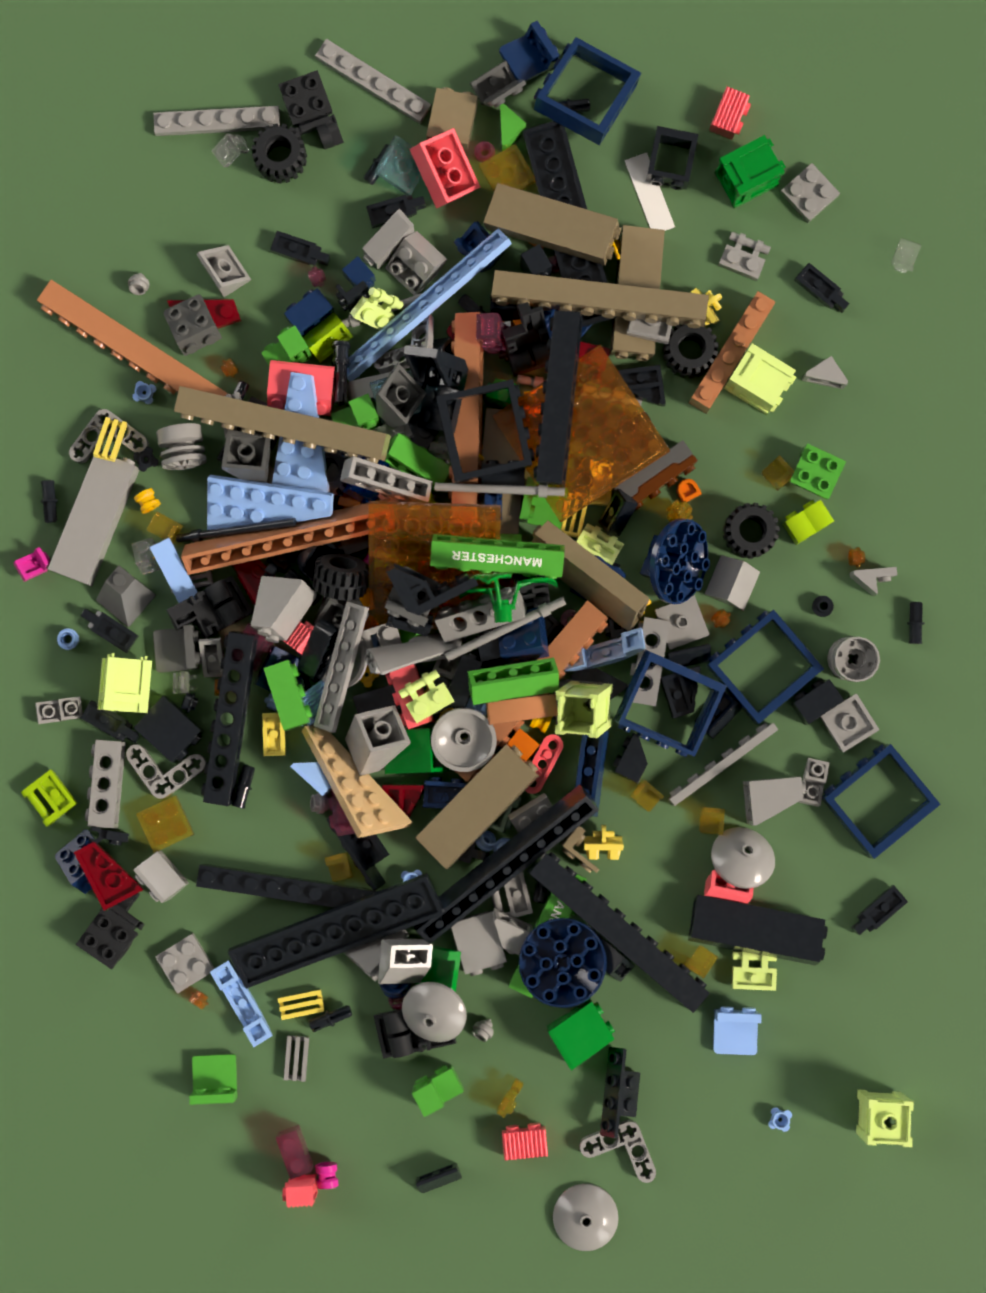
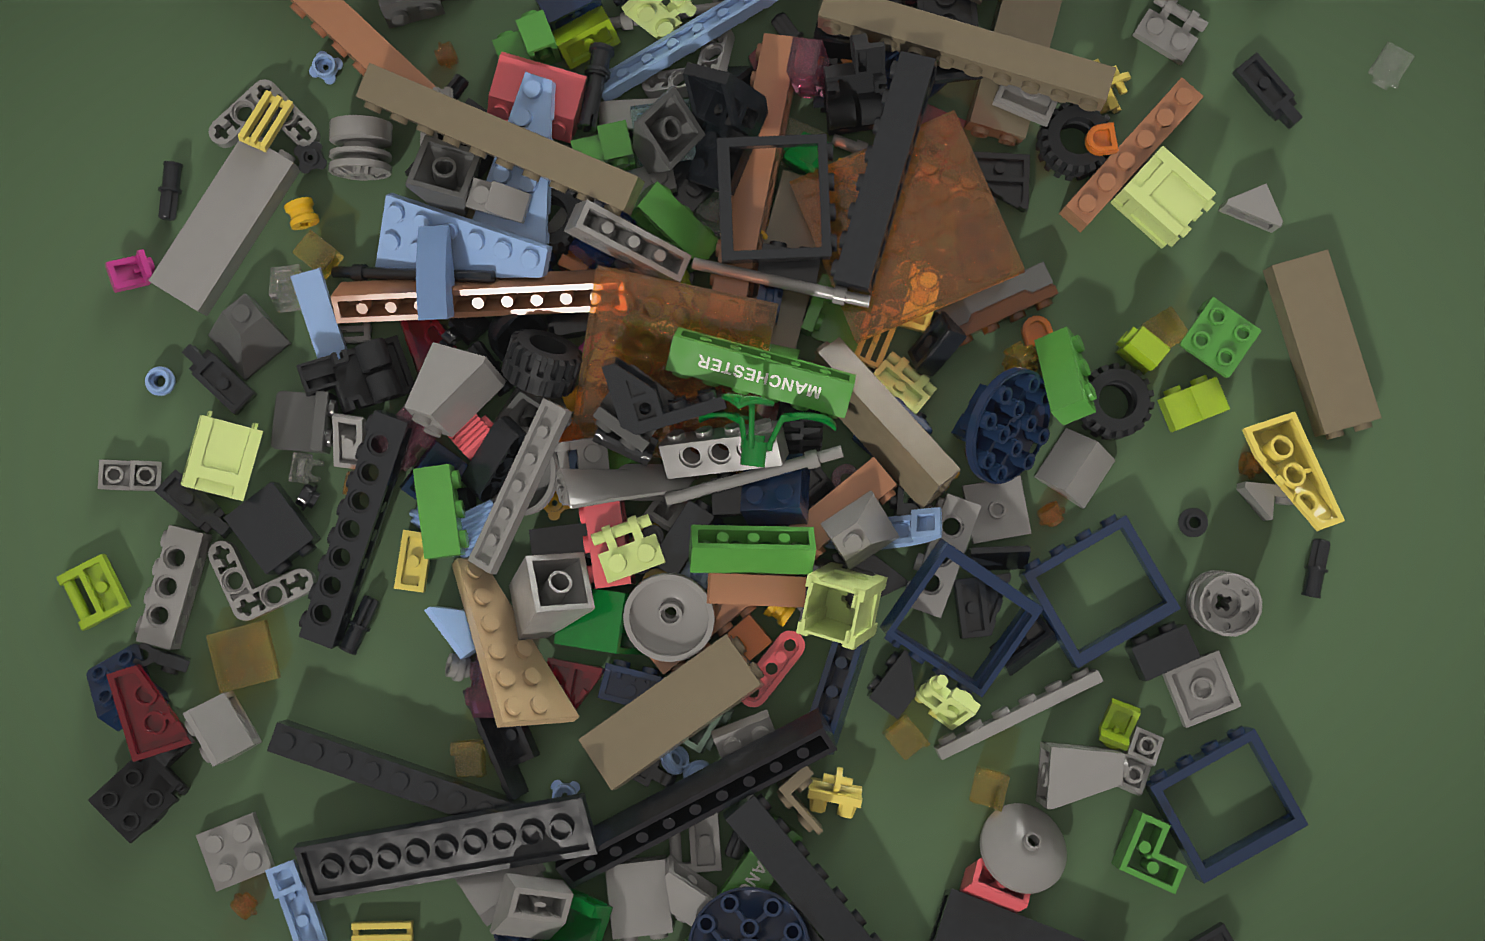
camera: 10 degrees right, 0 degrees up
(253, 526) = (434, 273): none -> medium blue slope
(288, 467) = (498, 200): none -> light grey slope
(587, 654) = (860, 530): none -> light grey slope
(671, 767) = (946, 706): none -> yellowish green plate
(708, 346) = (1102, 139): none -> orange tile
(713, 518) = (1066, 375): none -> bright green brick
(763, 489) = (1141, 349): none -> lime brick
(795, 758) = (1118, 724): none -> lime bracket
(826, 845) = (1141, 856): none -> bright green brick
(883, 552) = (1290, 461): none -> light yellow wedge
(891, 463) = (1322, 345): none -> dark tan brick

